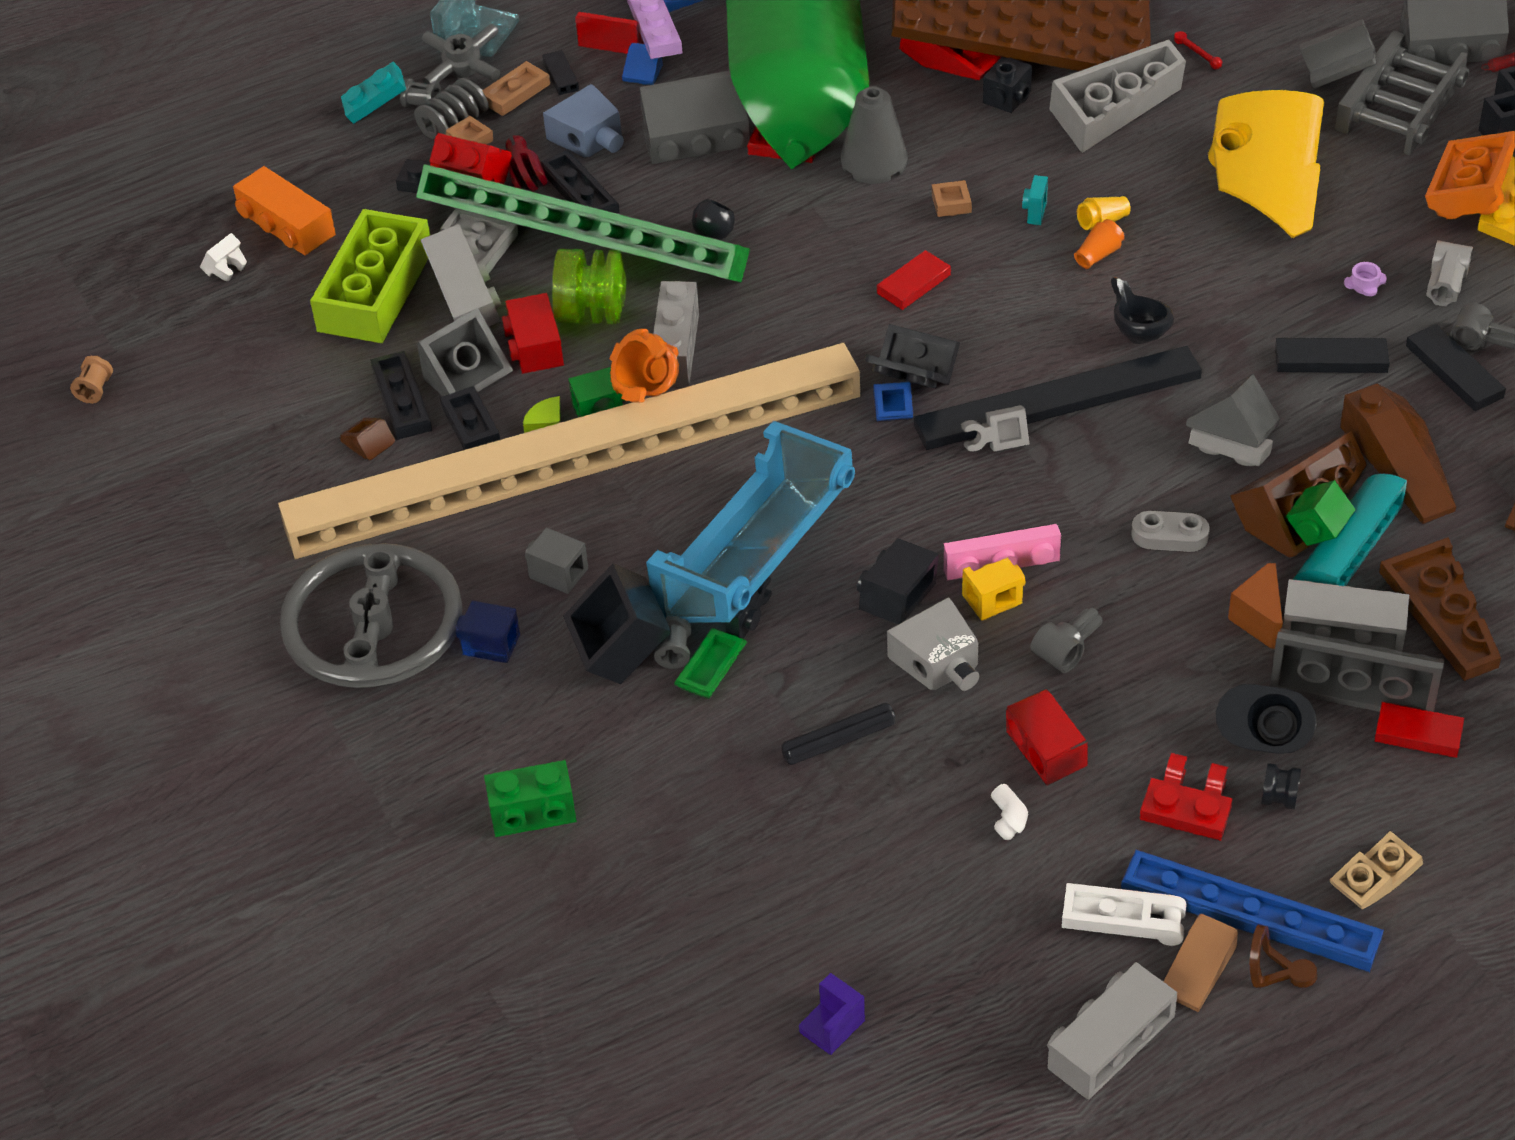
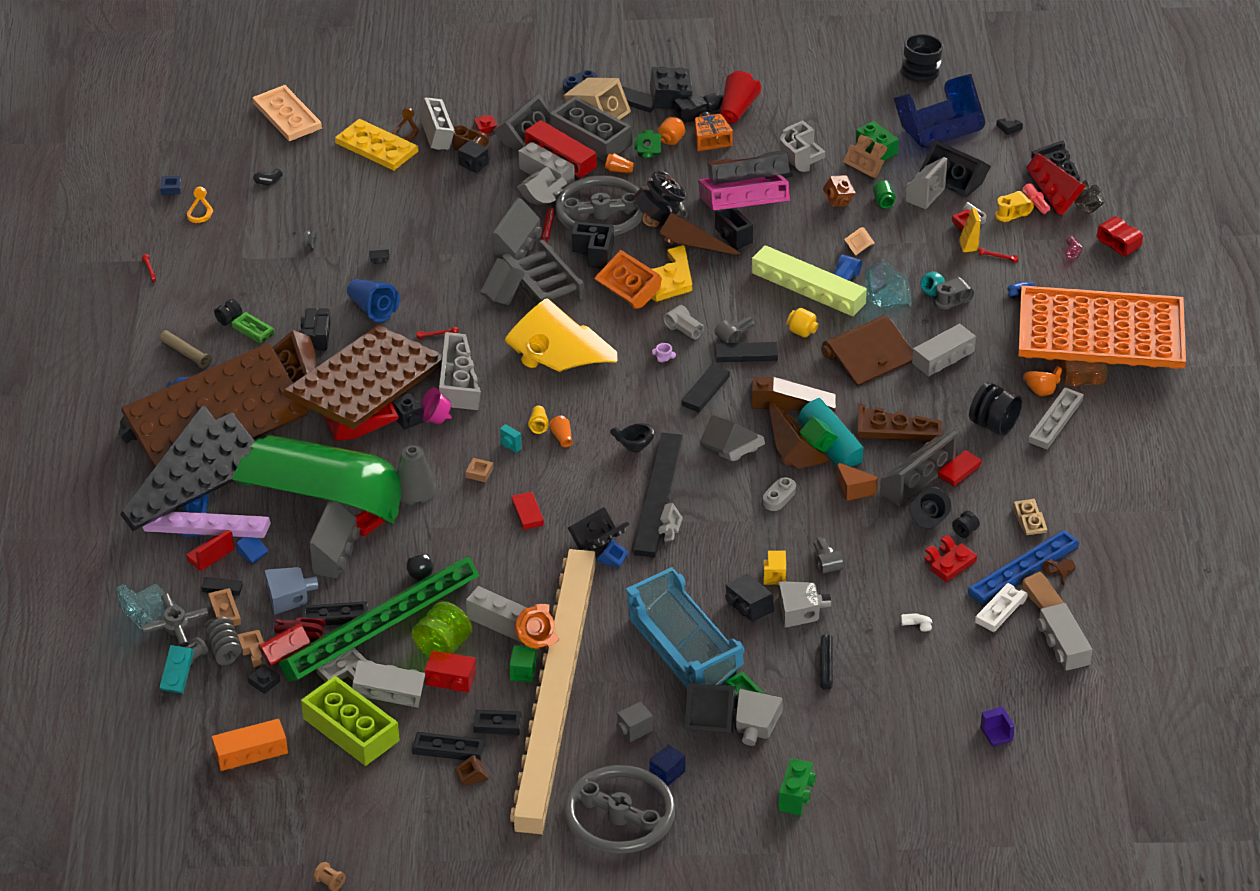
camera: 65 degrees left, 5 degrees down
(222, 253) = (268, 786): white tile -> none
(462, 356) = (450, 708): dark grey slope -> none
(543, 414) = (516, 692): lime tile -> none
(650, 690) = (757, 715): none -> light grey torso
(1021, 547) = (756, 552): bright pink plate -> none
(1029, 107) = (435, 407): none -> dark pink piece
(1046, 736) = (884, 587): red piece -> none
(1347, 613) = (884, 455): light grey brick -> none

